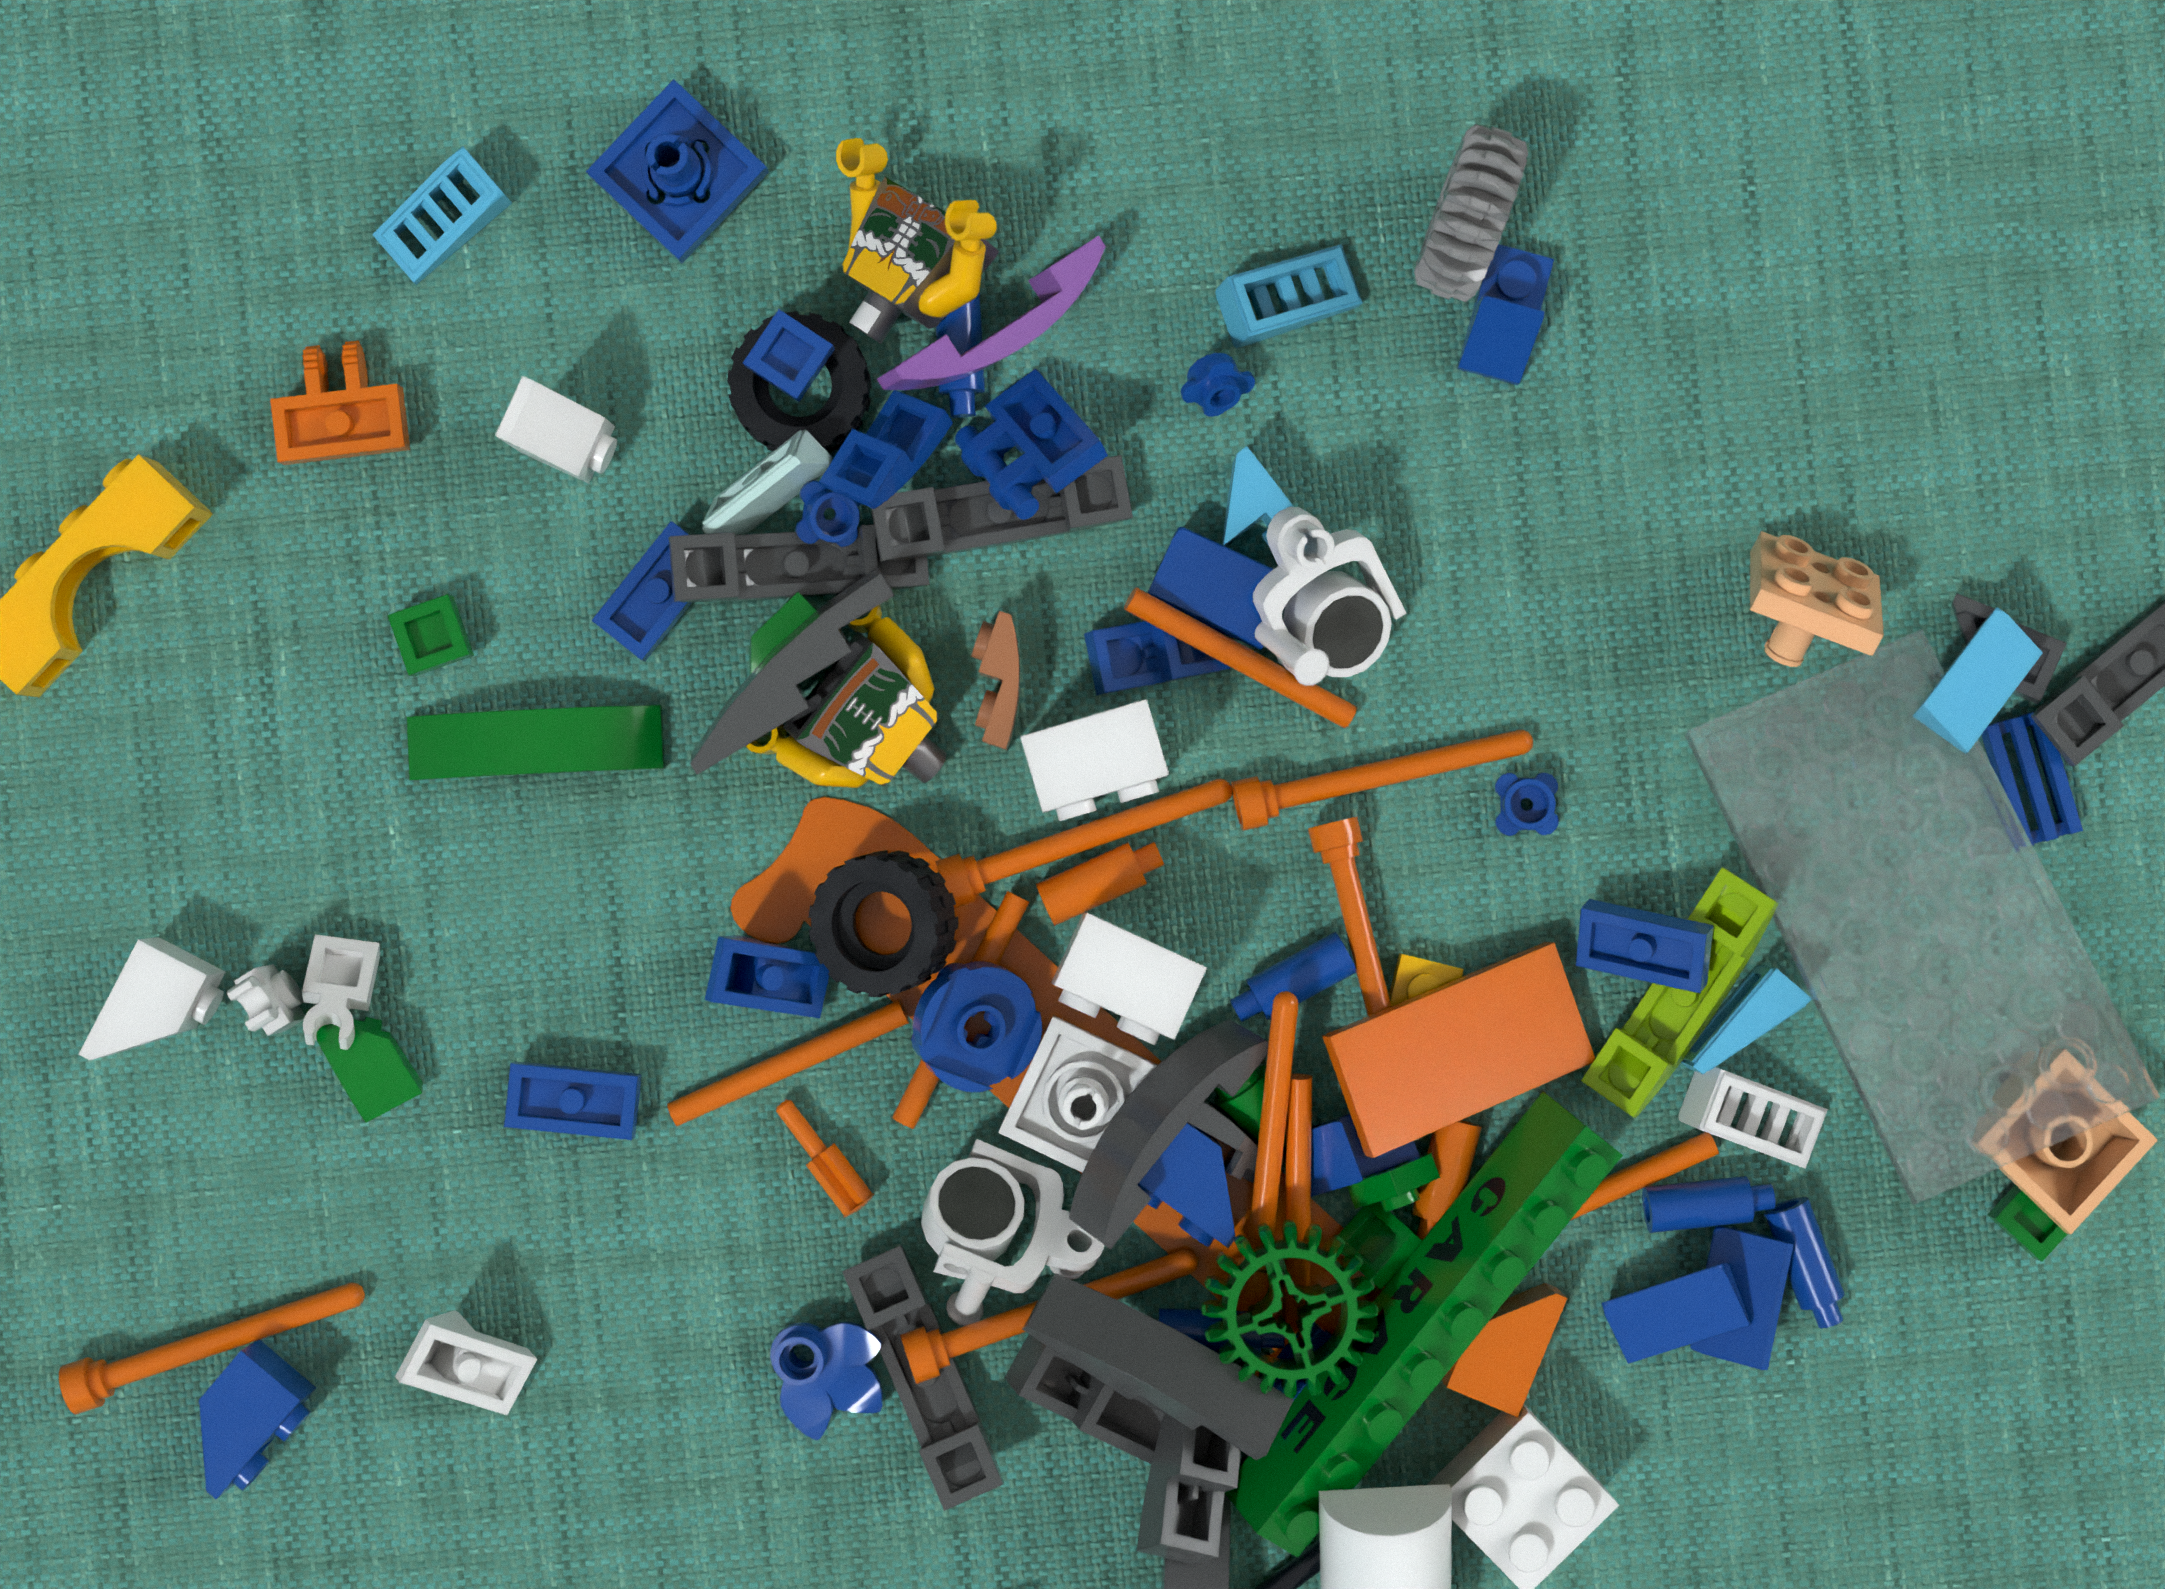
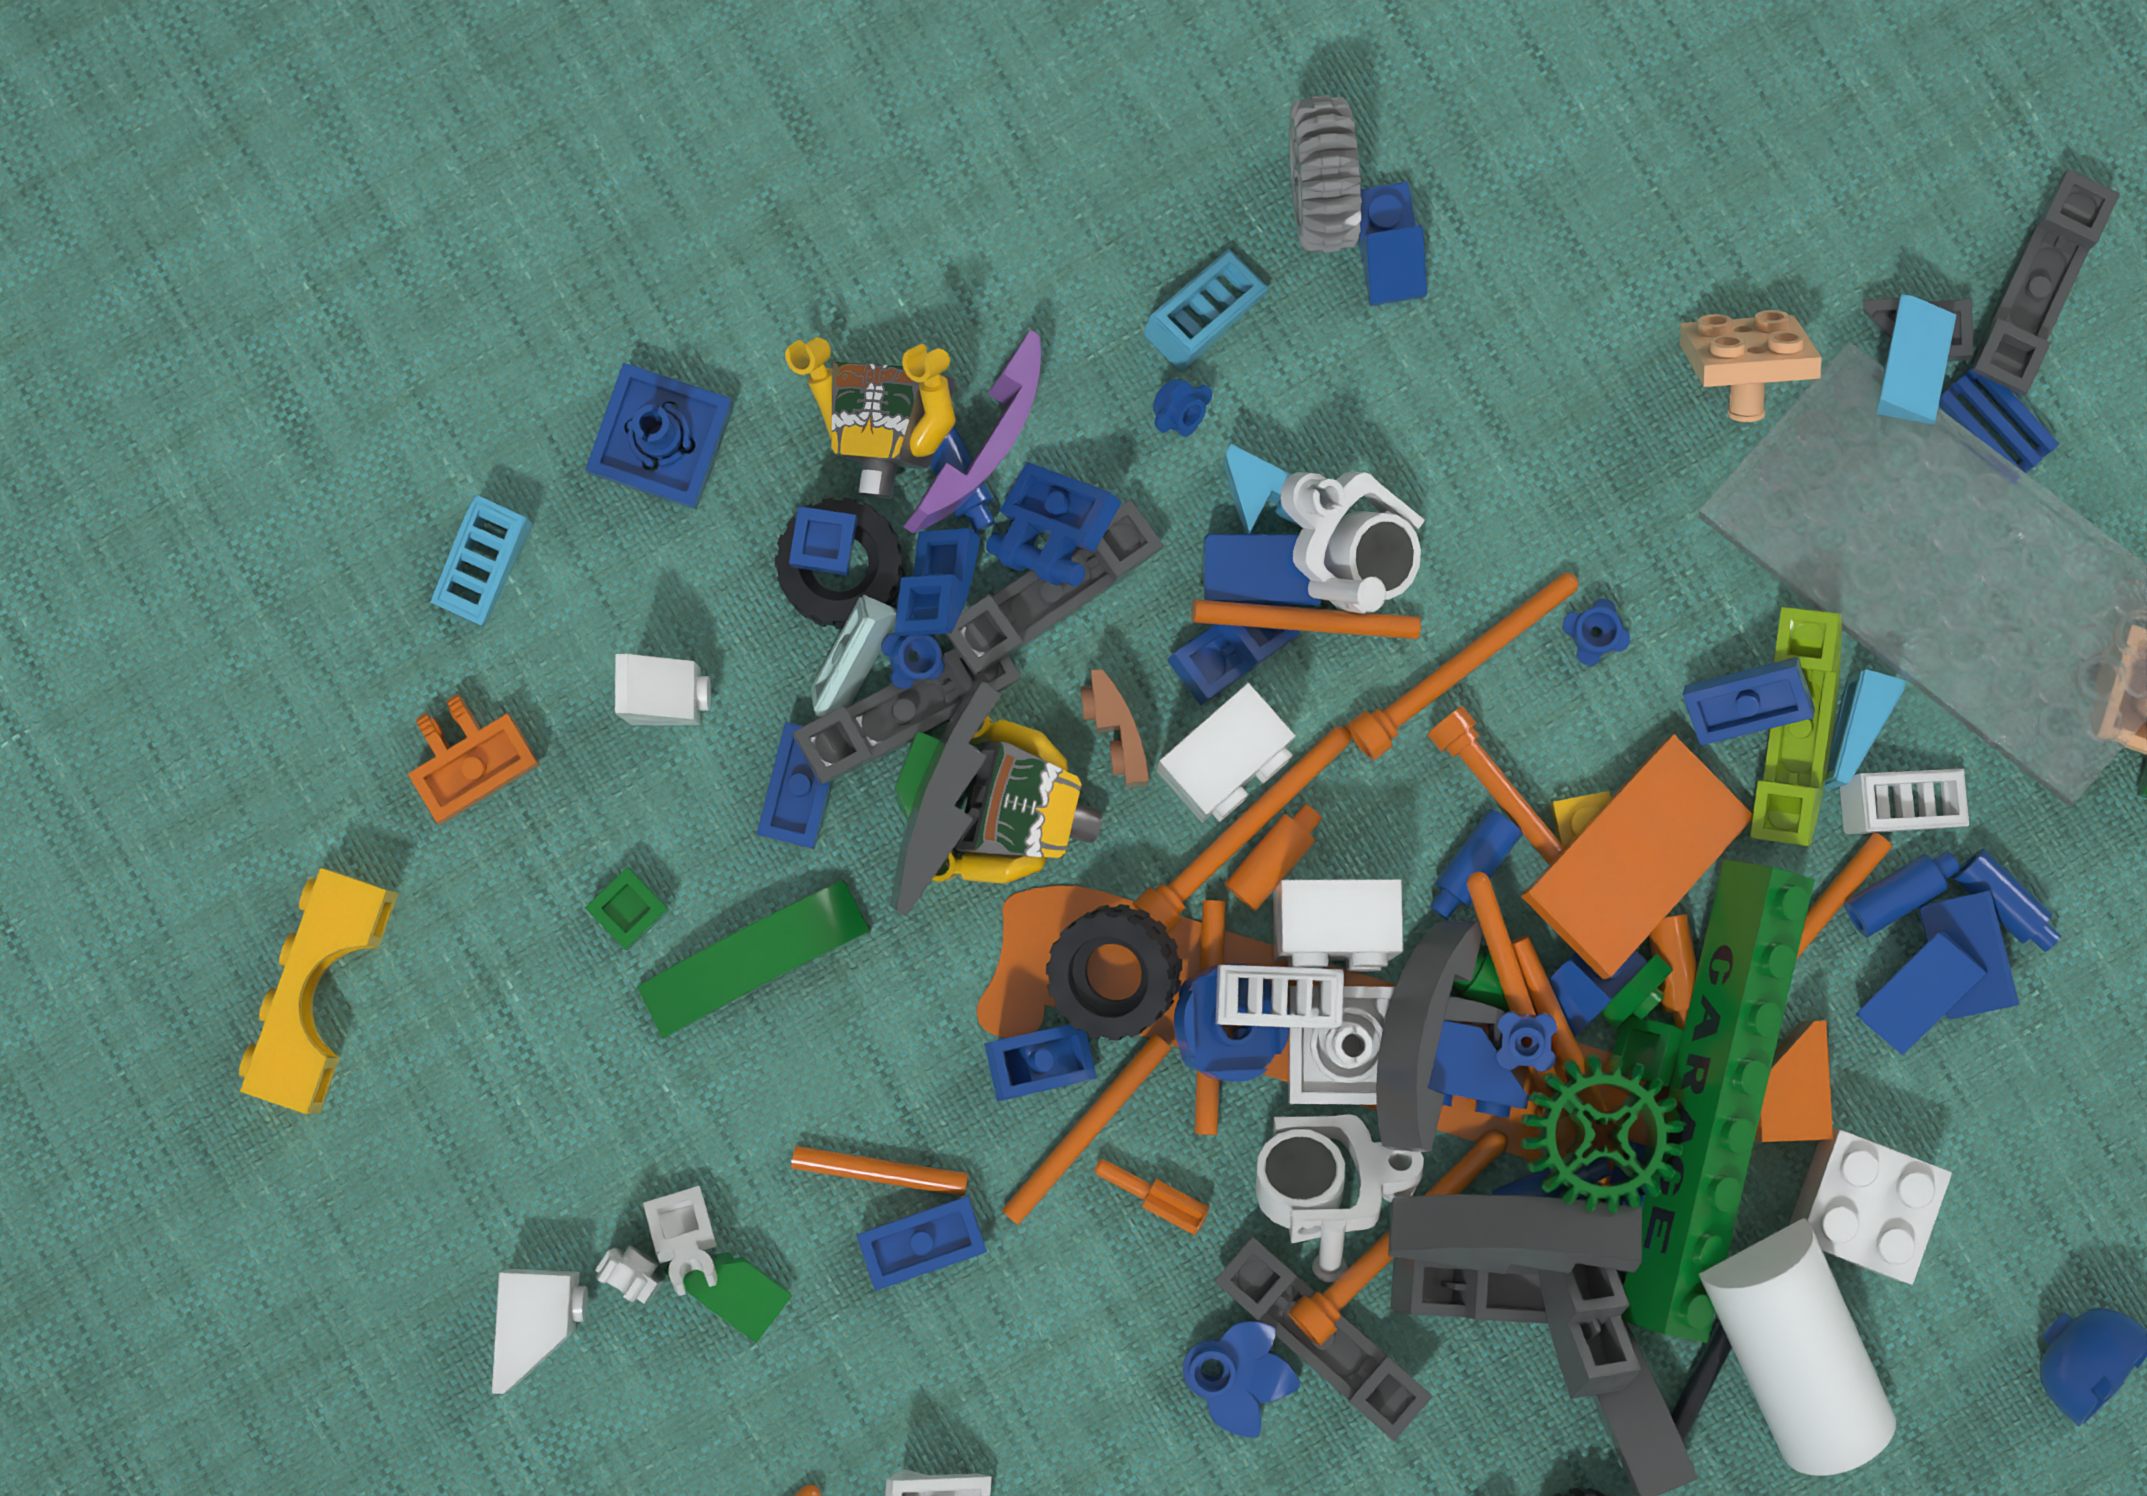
camera: 25 degrees left, 5 degrees down
(564, 1010) = (879, 1170): none -> orange bar
(1084, 1049) = (1330, 996): none -> white slope
(1275, 1173) = (1538, 1028): none -> blue plate

